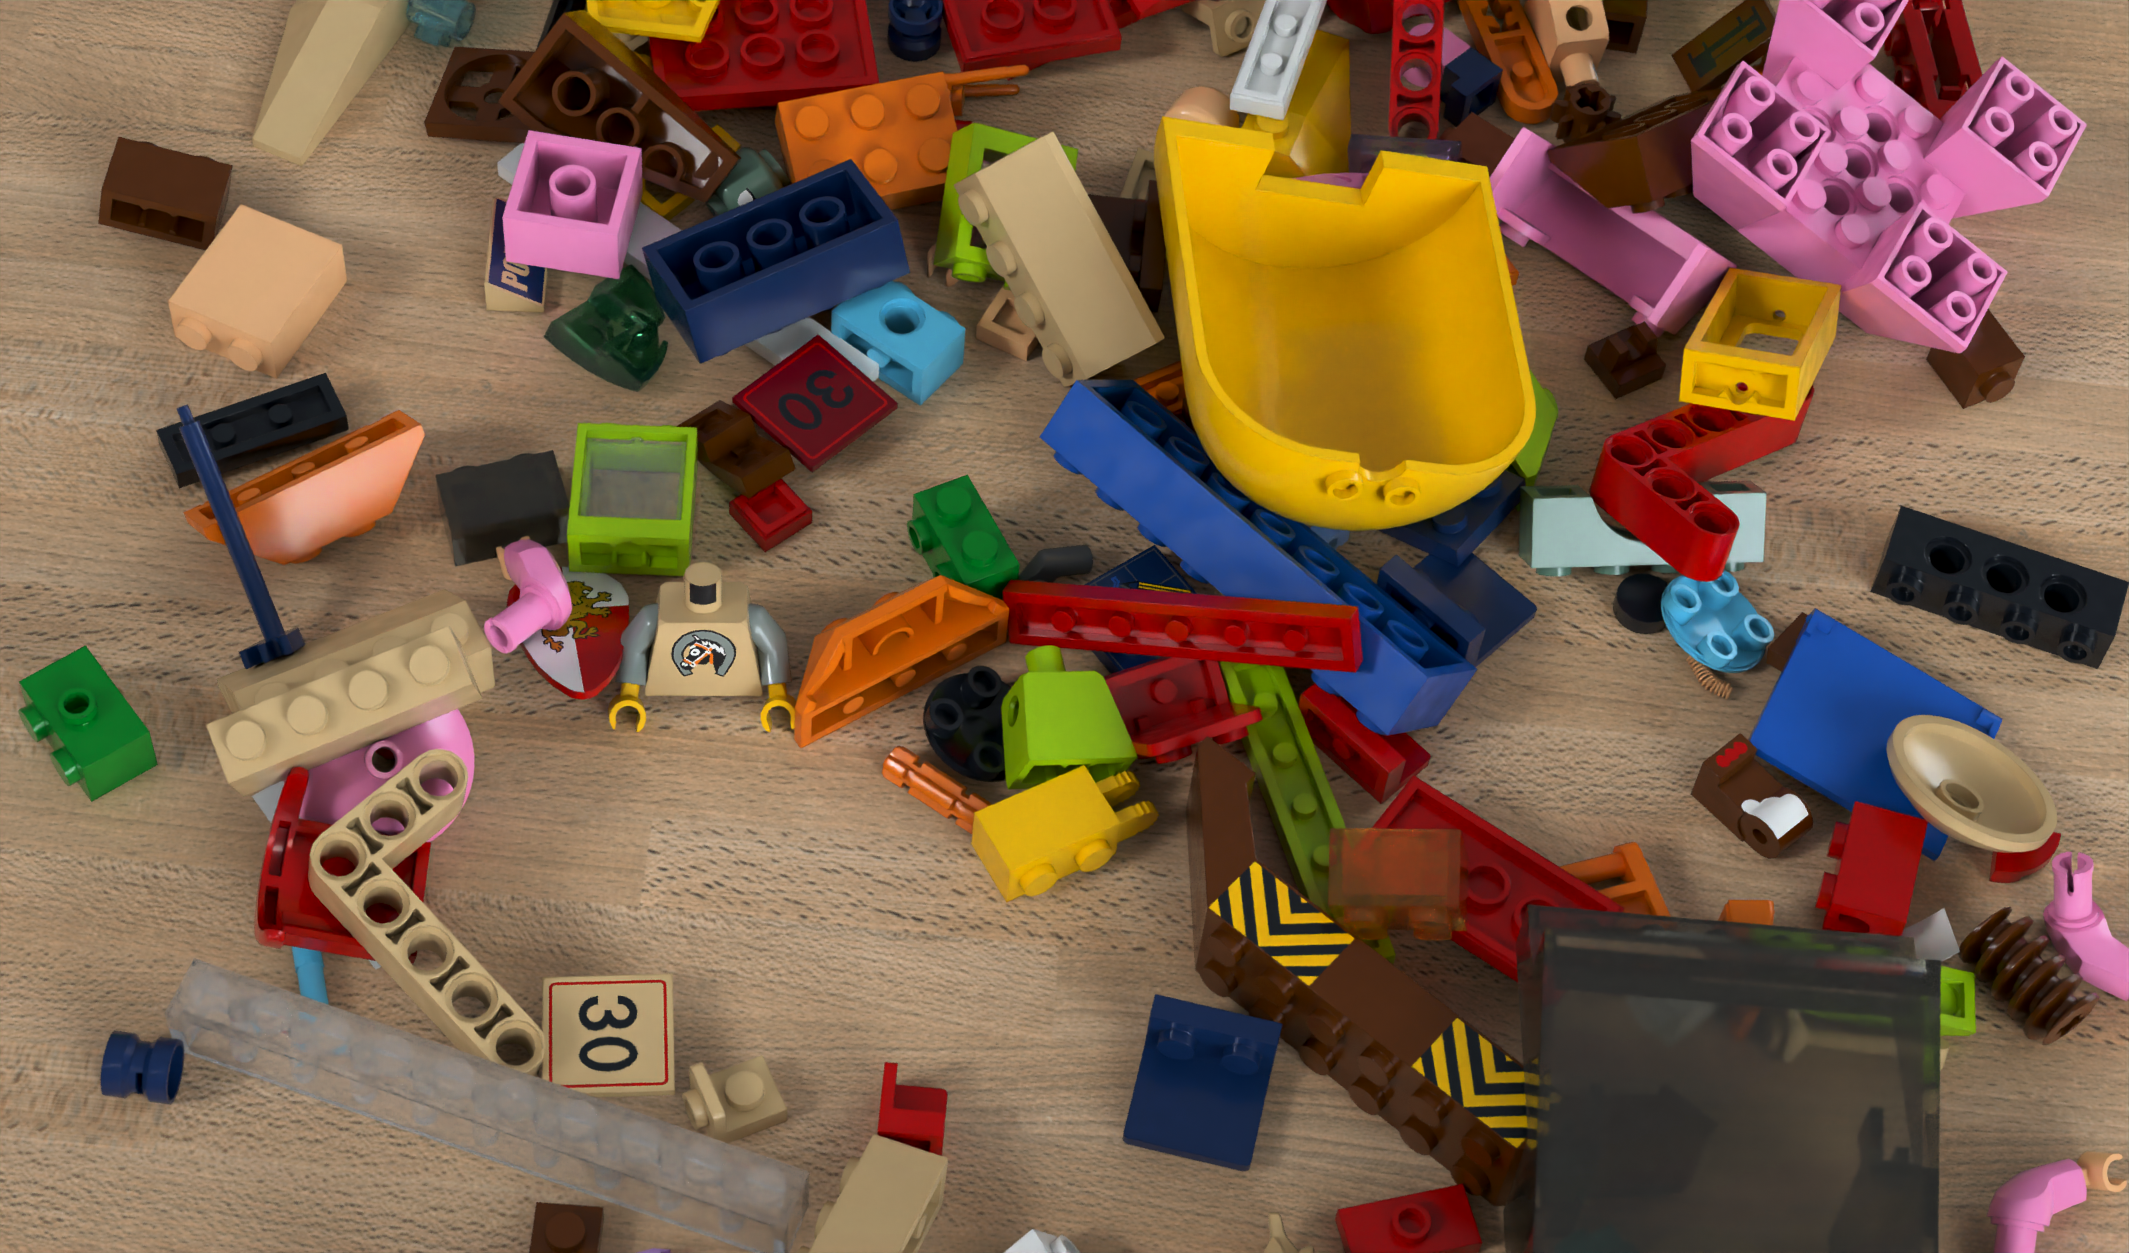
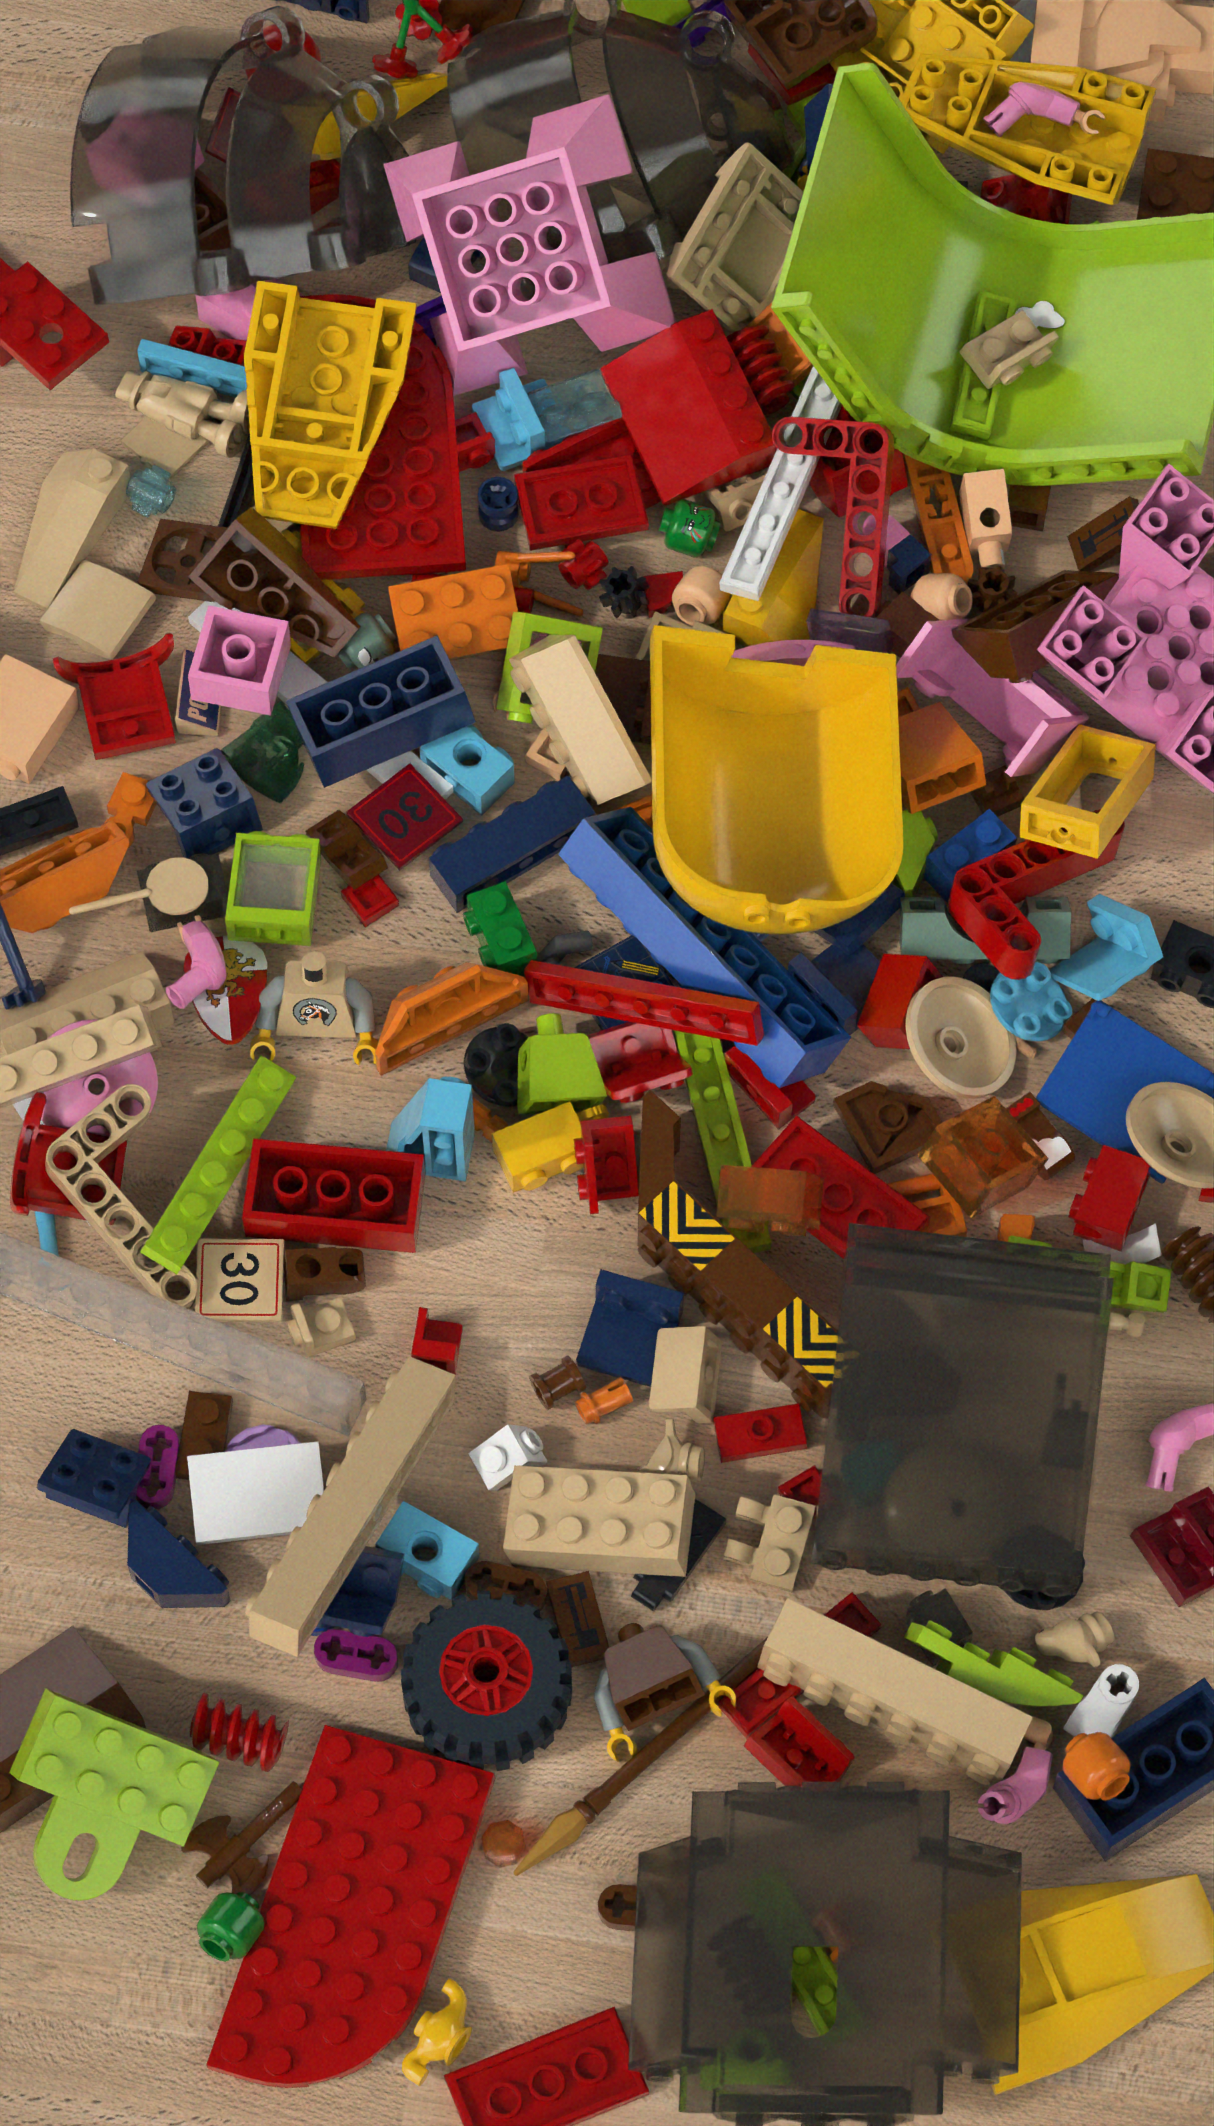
camera: 10 degrees right, 10 degrees up
(370, 156) = (97, 609): none -> tan slope
(411, 266) = (124, 700): none -> red piece
(428, 395) = (130, 804): none -> orange plate
(485, 494) = (172, 886): none -> tan piece
(531, 391) = (205, 804): none -> dark blue bracket
(567, 873) = (218, 1165): none -> lime plate
(732, 1019) = (323, 1272): none -> reddish brown leg
(745, 908) = (334, 1195): none -> red brick
(889, 809) = (439, 1126): none -> medium azure wedge
(965, 433) = (510, 843): none -> dark blue brick
(1038, 93) = (586, 566): none -> red gear
(1094, 123) = (620, 582): none -> black gear
(1099, 1167) = (557, 1382): none -> reddish brown bush
(1139, 124) = (661, 590): none -> red tile
(1147, 845) = (608, 1160): none -> red bracket
(1169, 1193) = (603, 1401): none -> orange pin
(1175, 48) = (689, 528): none -> green head
(1290, 1144) = (686, 1372): none -> tan panel
(1527, 109) = (943, 595): none -> light nougat head
(1537, 623) = (890, 995): none -> red panel
(1541, 790) = (886, 1123): none -> reddish brown plate
(1560, 308) = (936, 758): none -> orange brick
(1580, 438) = (974, 842): none -> blue brick
(1629, 666) = (959, 1038): none -> tan dish
(1687, 822) = (982, 1156): none -> clear orange brick
(1837, 540) = (1120, 952): none -> medium azure bracket

